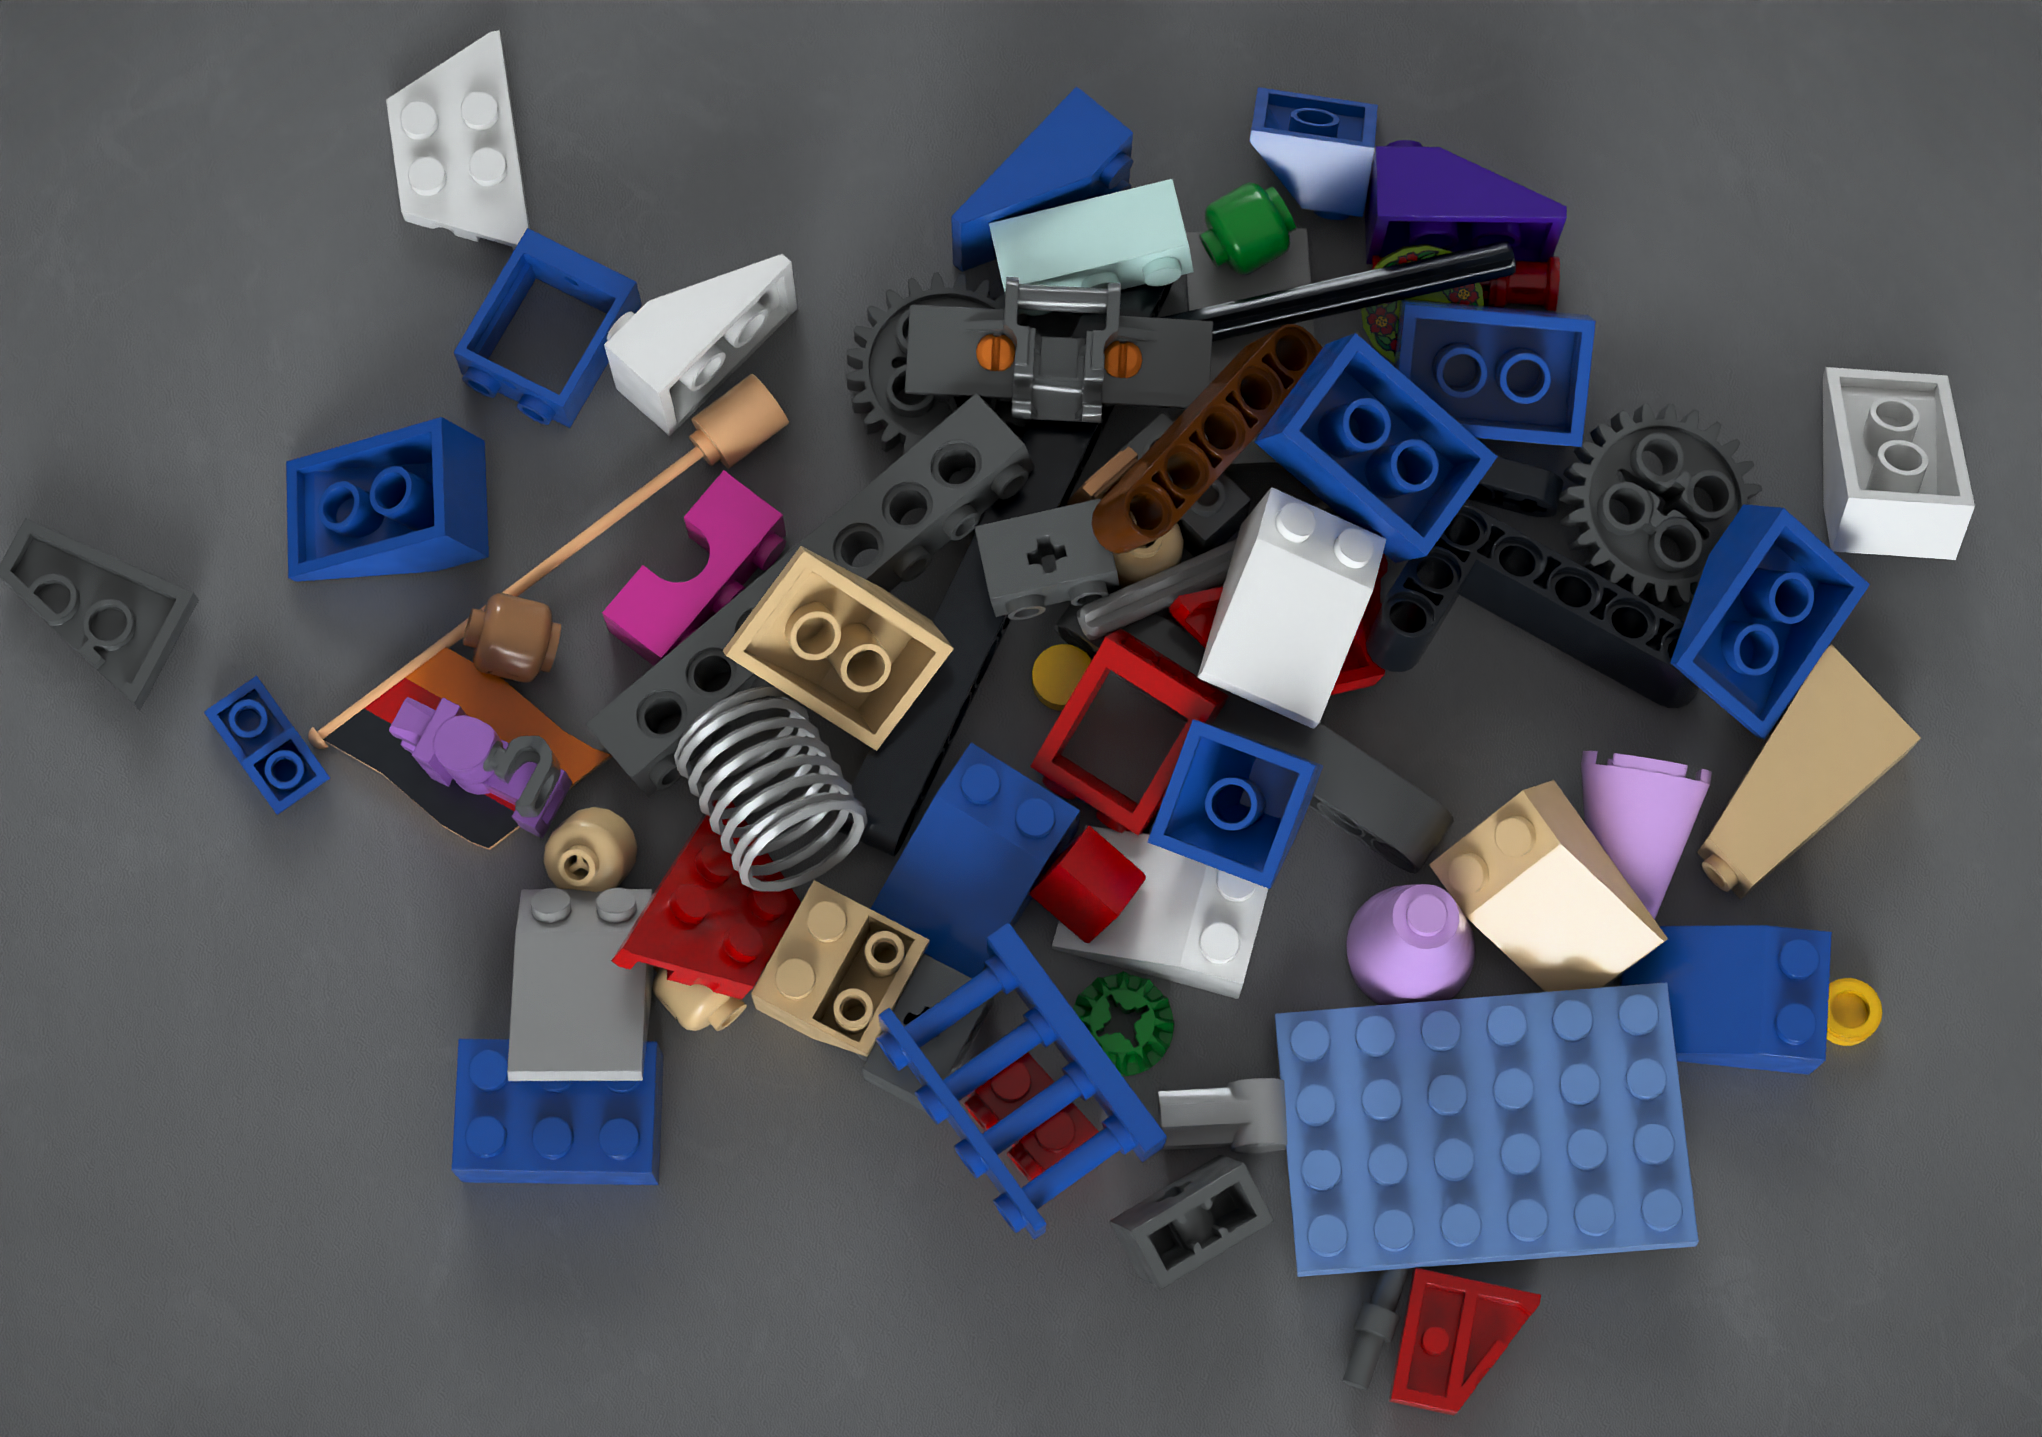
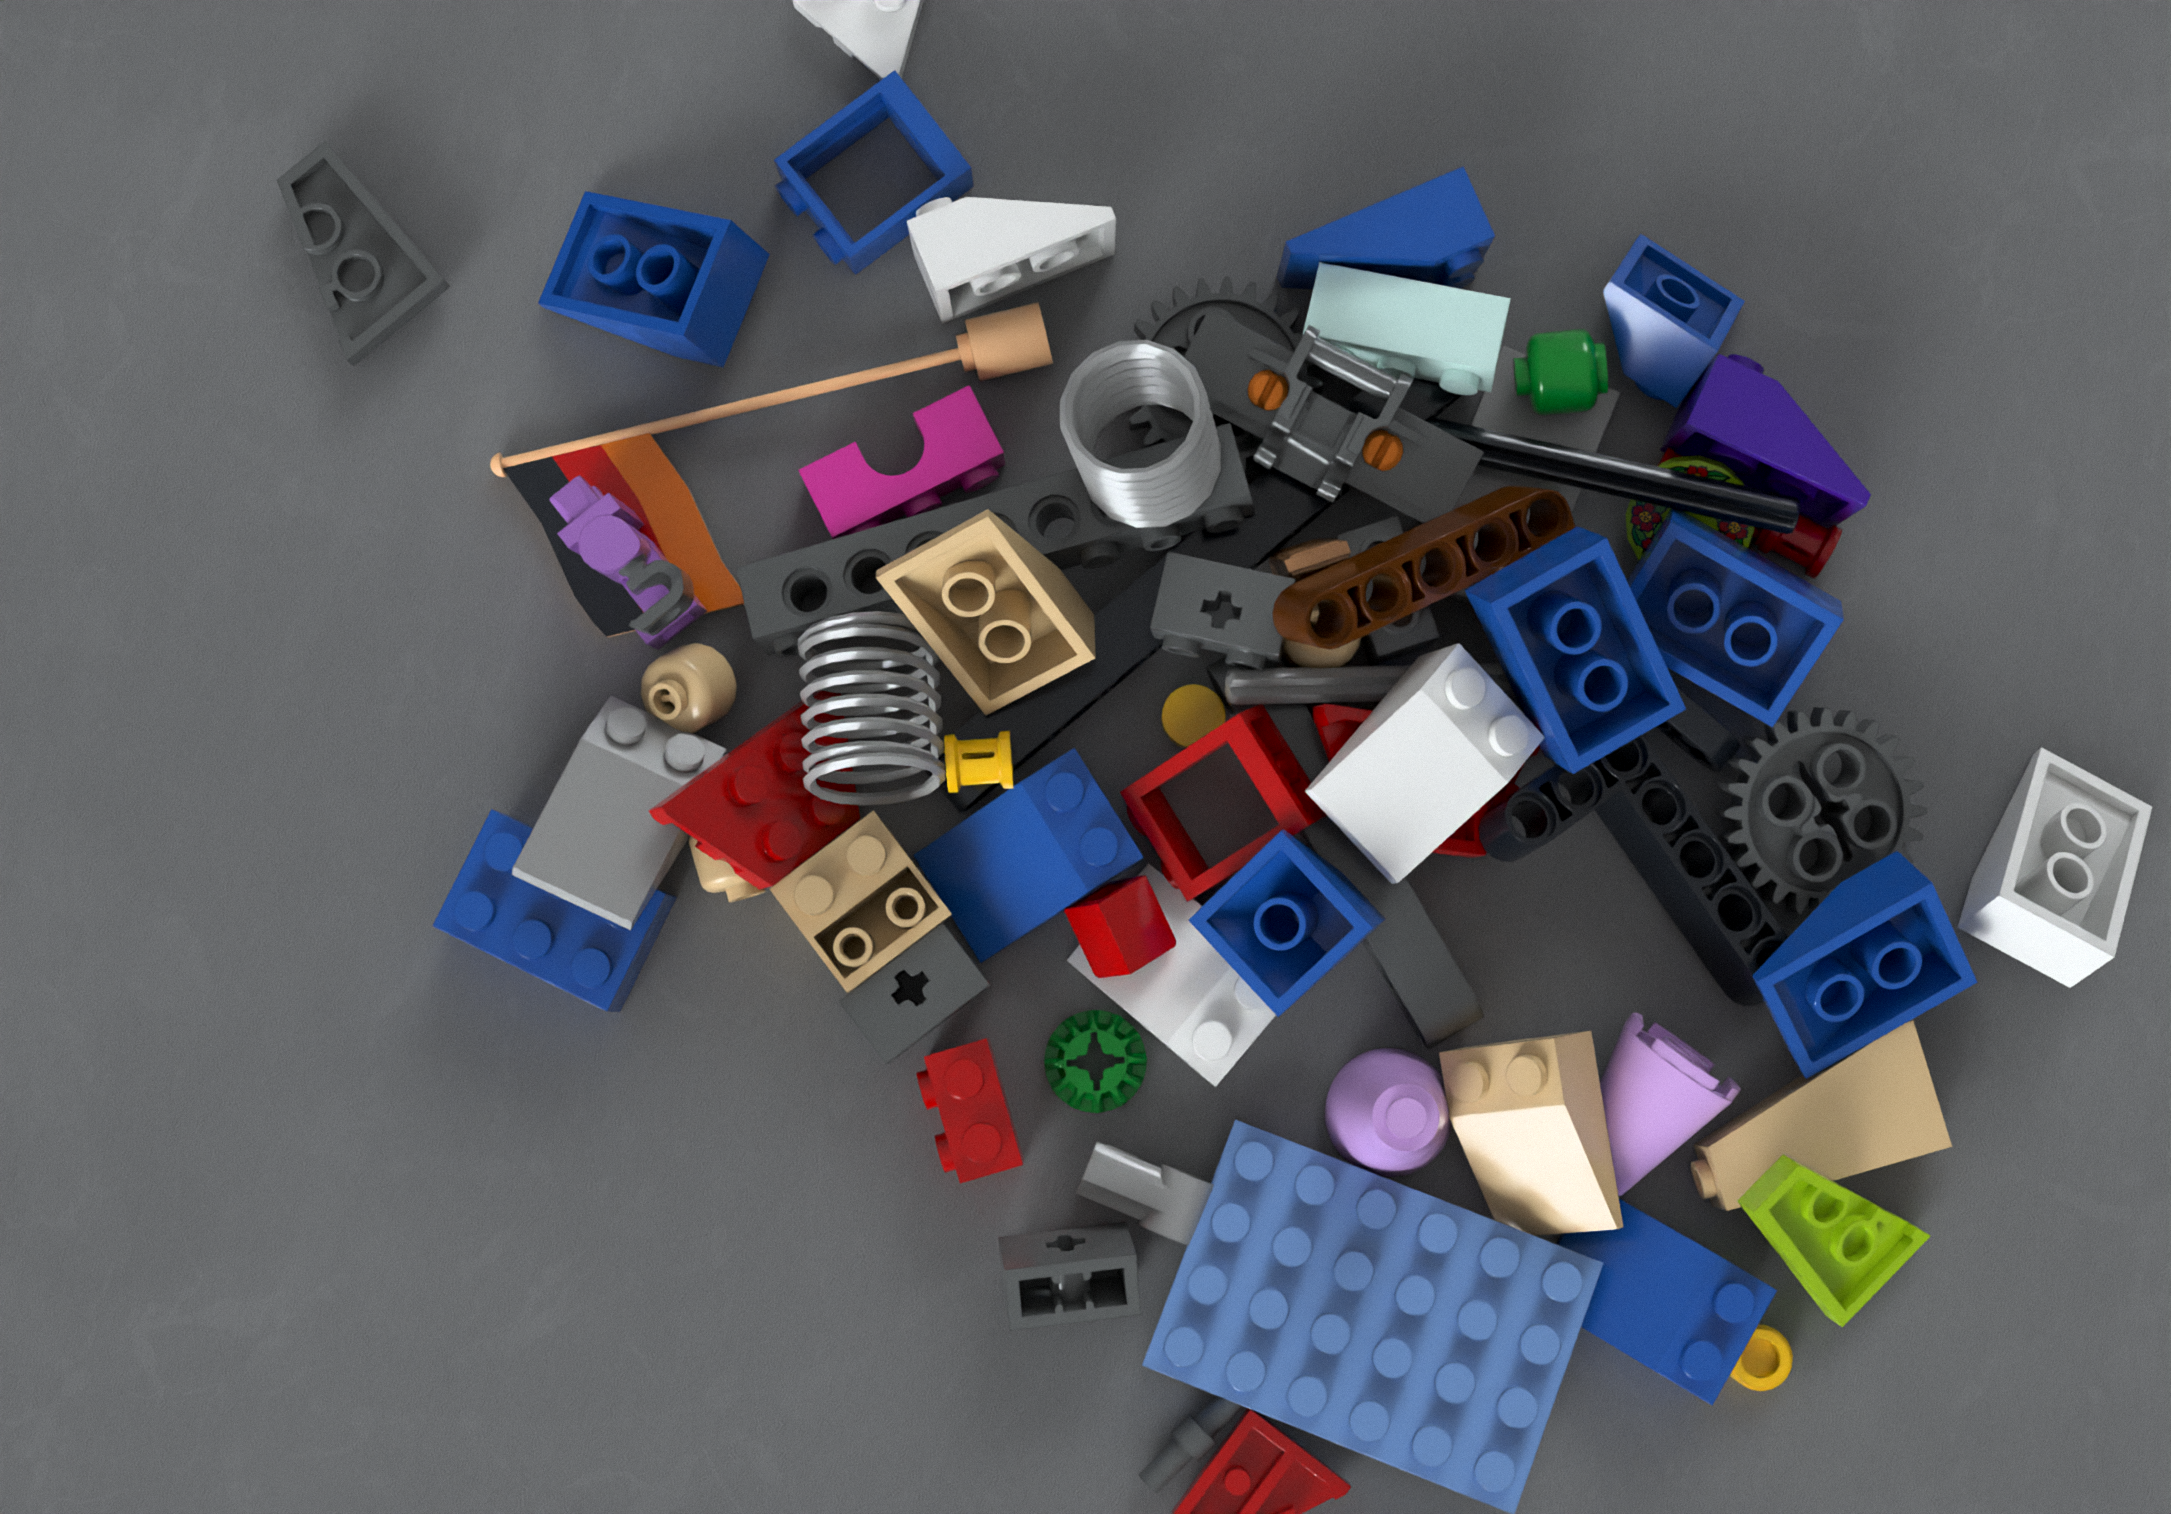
camera: 25 degrees right, 10 degrees up
(267, 745) = (451, 451): blue slope -> none
(512, 637) = (709, 454): medium nougat head -> none
(882, 378) = (1120, 380): none -> light grey piece
(891, 791) = (978, 761): none -> yellow bush
(1086, 1075) = (1029, 1109): blue fence -> none
(1853, 867) = (1829, 1236): none -> lime wing

